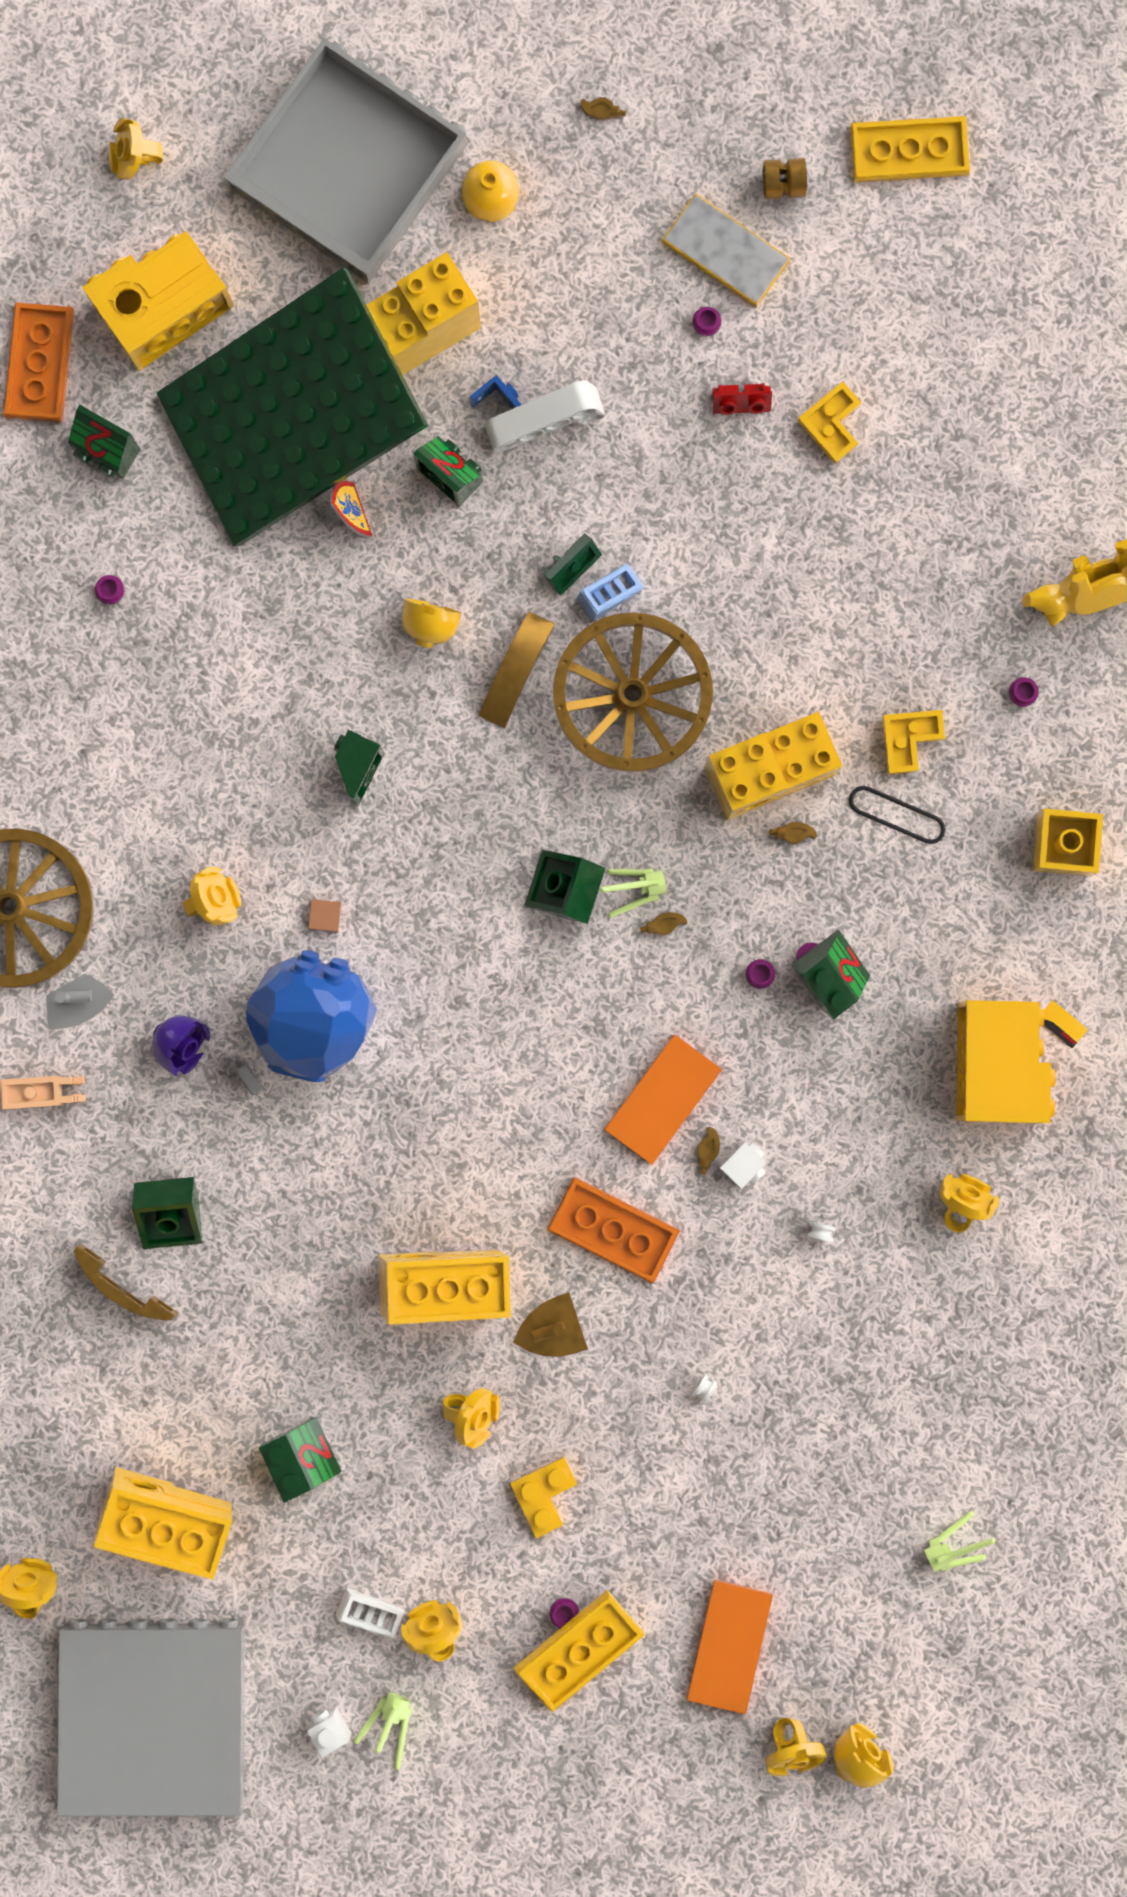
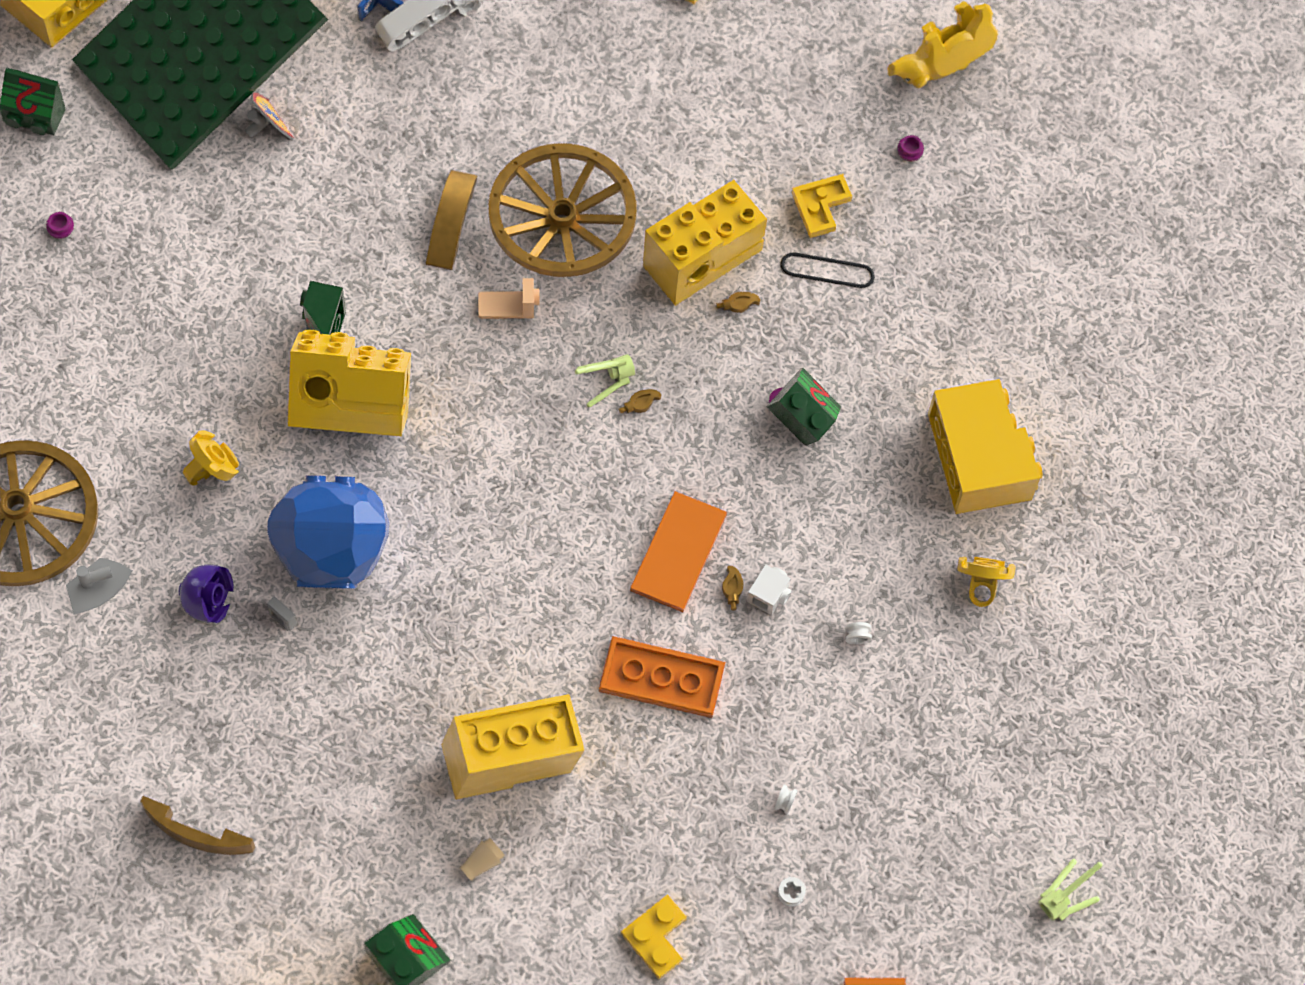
camera: 20 degrees left, 20 degrees down
(38, 1092) = (77, 669): light nougat hinge -> none
(167, 1213) = (226, 752): dark green slope -> none
(325, 915) = (321, 458): nougat tile -> none
(363, 855) = (347, 386): none -> yellow piece
(395, 1379) = (482, 859): none -> tan cone
(429, 622) = (362, 190): yellow cylinder -> none
(448, 470) = (350, 69): dark green slope -> none
(473, 1417) = (569, 869): yellow tile -> none
(552, 1329) = (626, 781): pearl gold shield -> none
(553, 783) = (509, 303): none -> light nougat bracket
(565, 886) = (541, 384): dark green slope -> none
(573, 564) = (481, 122): dark green plate -> none
(591, 607) = (507, 151): light blue slope -> none
(678, 1487) = (786, 898): none -> white bush
(760, 973) = (740, 424): magenta plate -> none
(1063, 1024) = (1029, 412): yellow sticker -> none
(1067, 842) = (985, 255): yellow brick -> none

